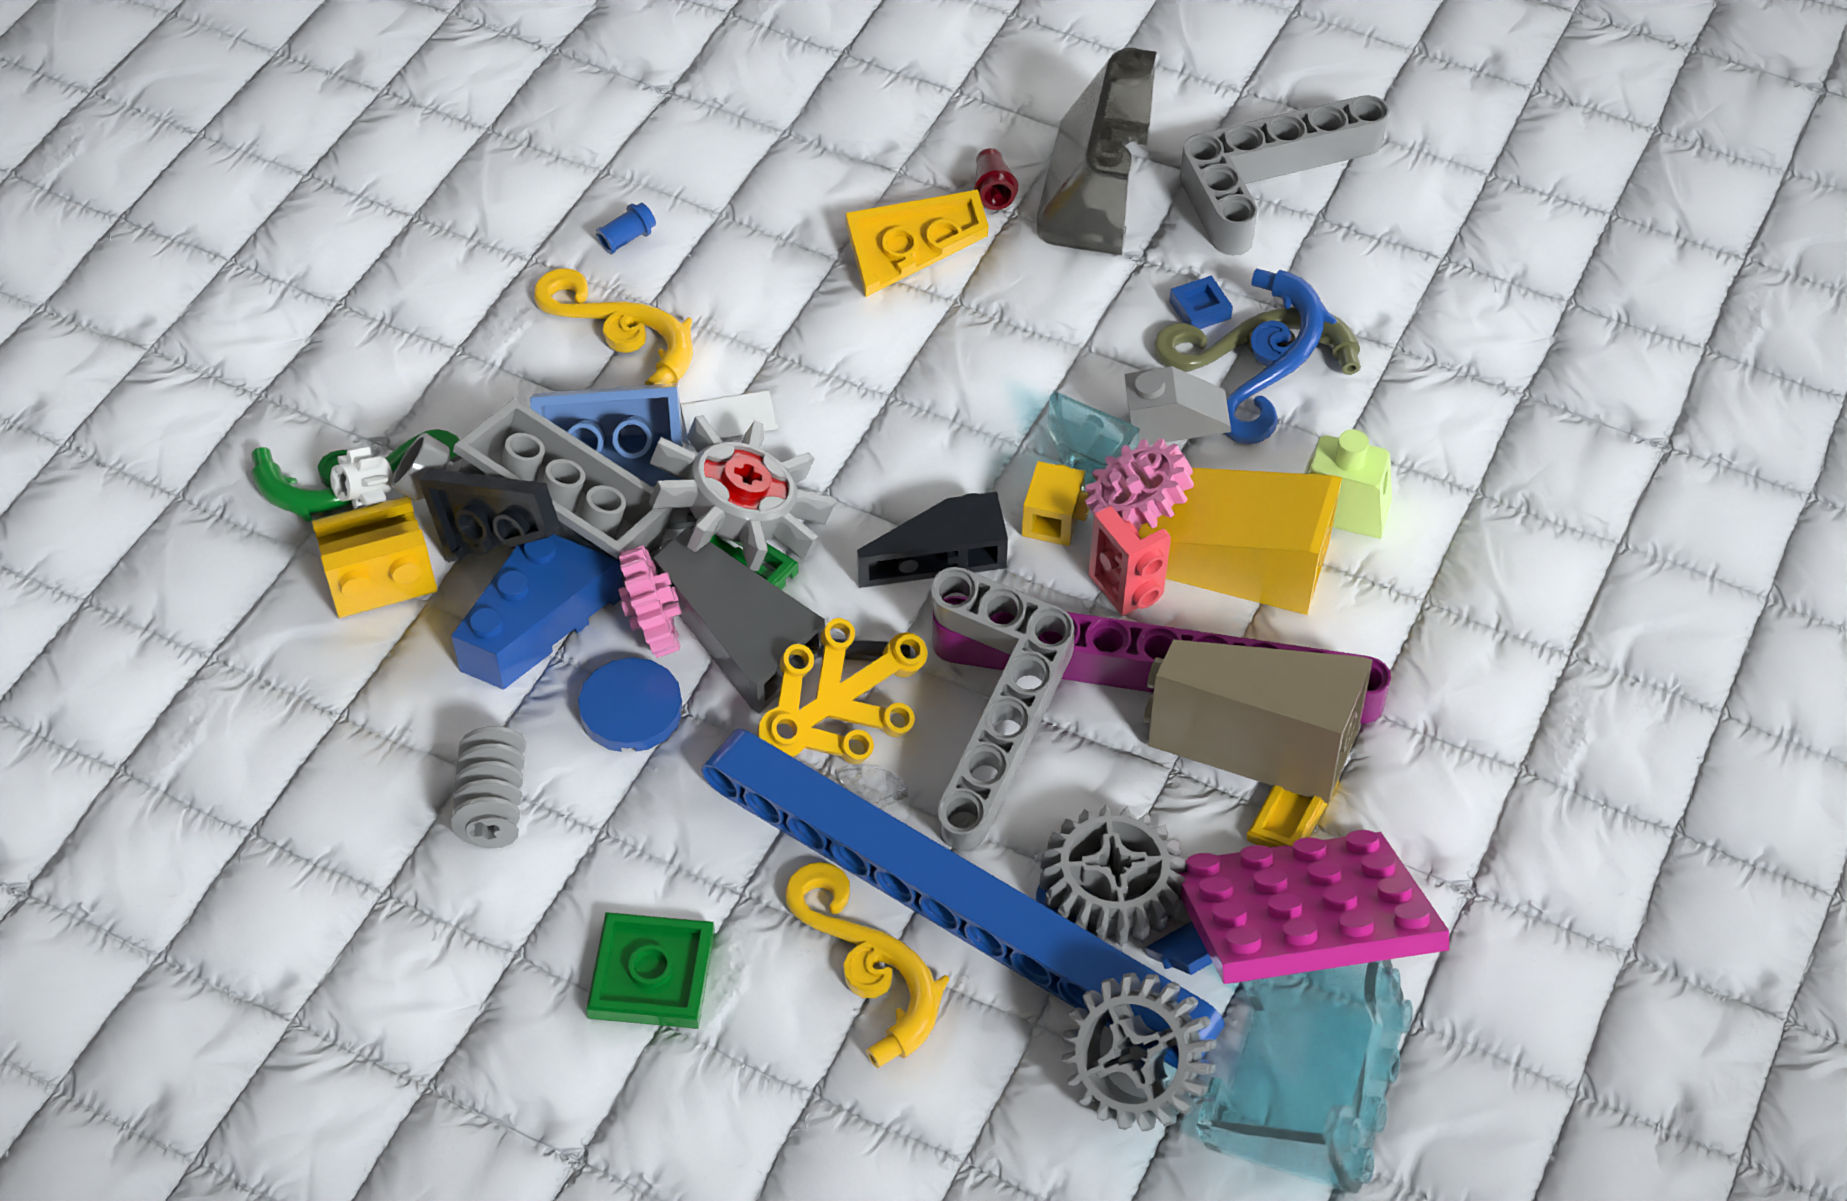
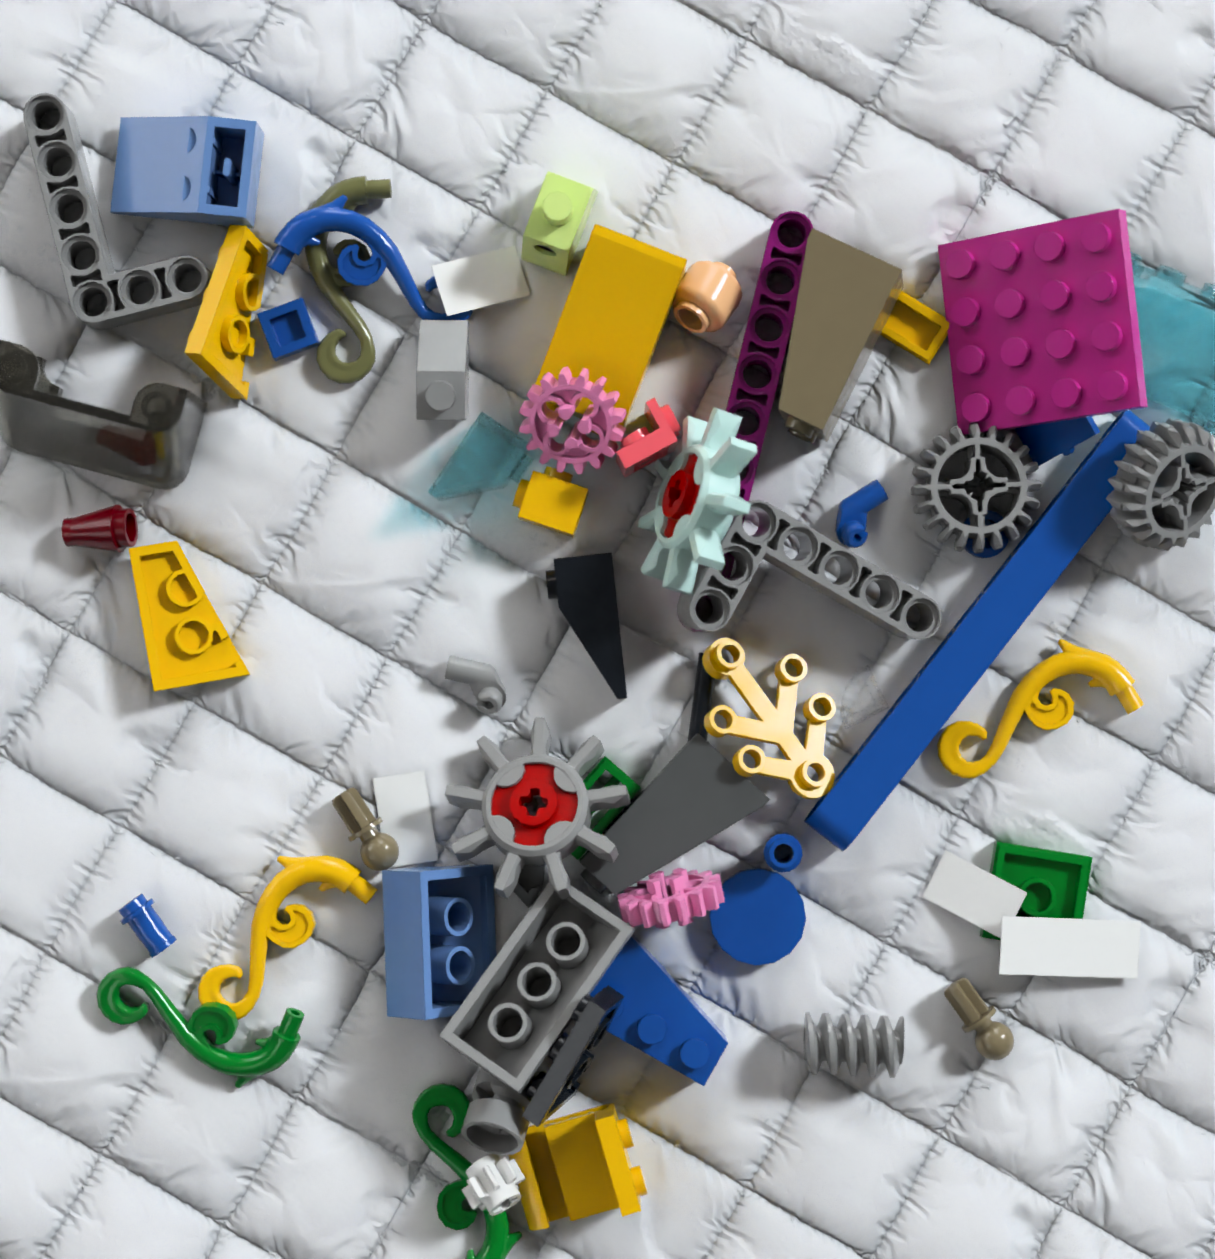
camera: 80 degrees left, 35 degrees up
(490, 927) = (992, 1038): none -> dark tan axle
(529, 271) = (192, 1033): none -> green plant
(592, 999) = (1069, 947): none -> white sticker
(653, 903) = (973, 893): none -> white sticker
(699, 388) = (378, 849): none -> dark tan axle
(699, 705) = (788, 863): none -> blue pin
(874, 462) = (483, 681): none -> light grey arm
(1071, 578) = (697, 500): none -> light aqua gear
(1072, 769) = (853, 512): none -> blue arm
(1200, 242) = (223, 321): none -> yellow wing
(1271, 435) = (480, 280): none -> white sticker
(1287, 614) = (706, 296): none -> light nougat head
(1340, 224) = (188, 169): none -> medium blue slope

